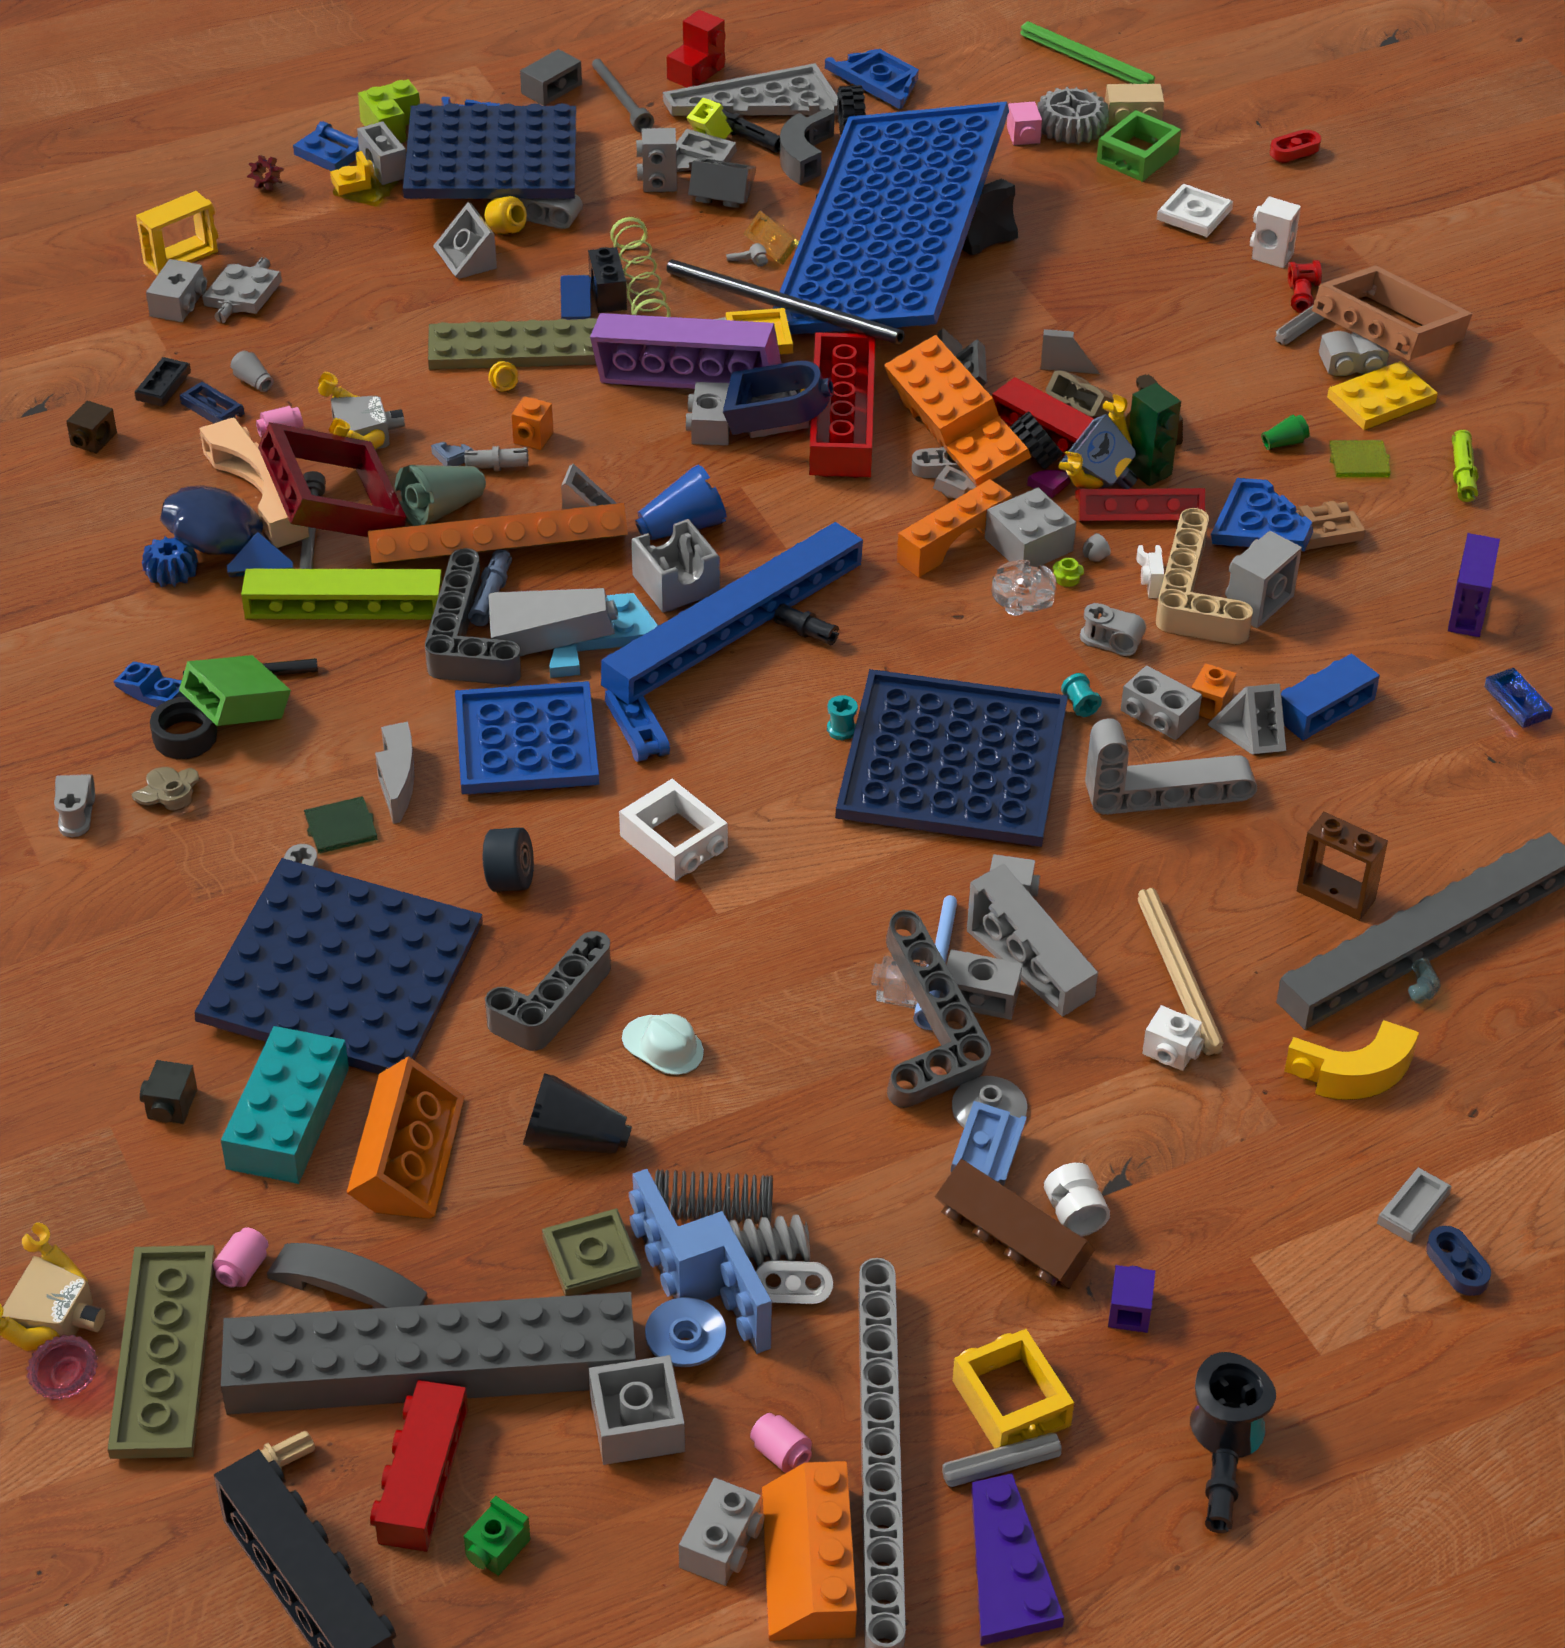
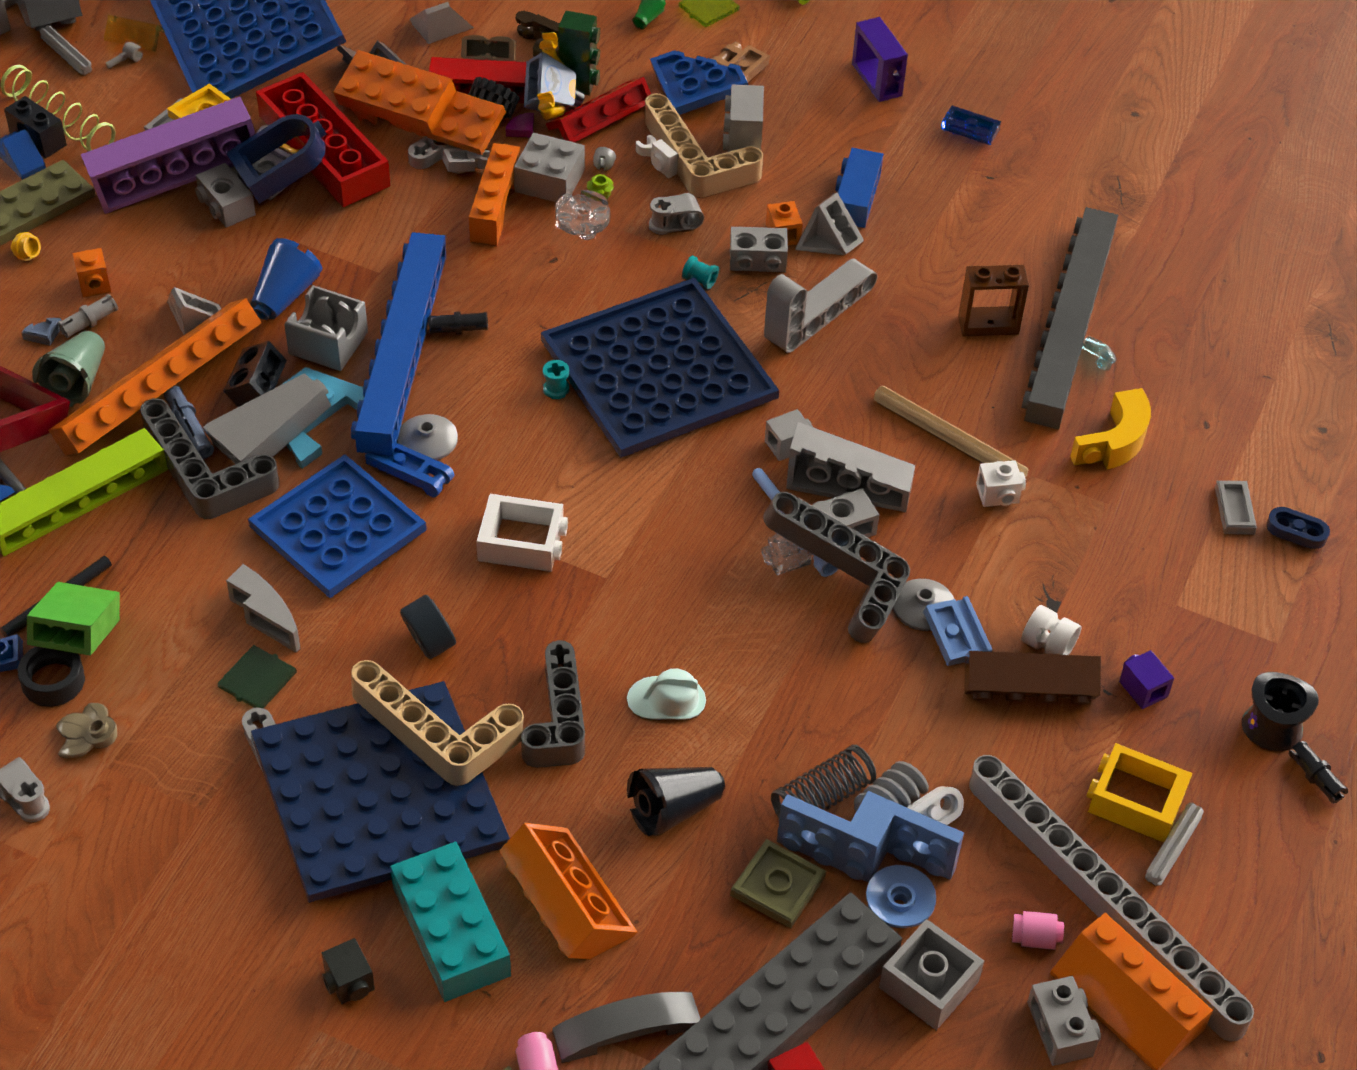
camera: 40 degrees left, 5 degrees up
(425, 976) = (420, 727): none -> tan beam
(582, 571) = (255, 373): none -> black brick
(683, 709) = (429, 435): none -> light grey dish
(702, 228) = (66, 50): none -> light grey axle
(786, 301) = (201, 78): black piece -> none
(1010, 1571) = (1256, 917): dark purple wing -> none

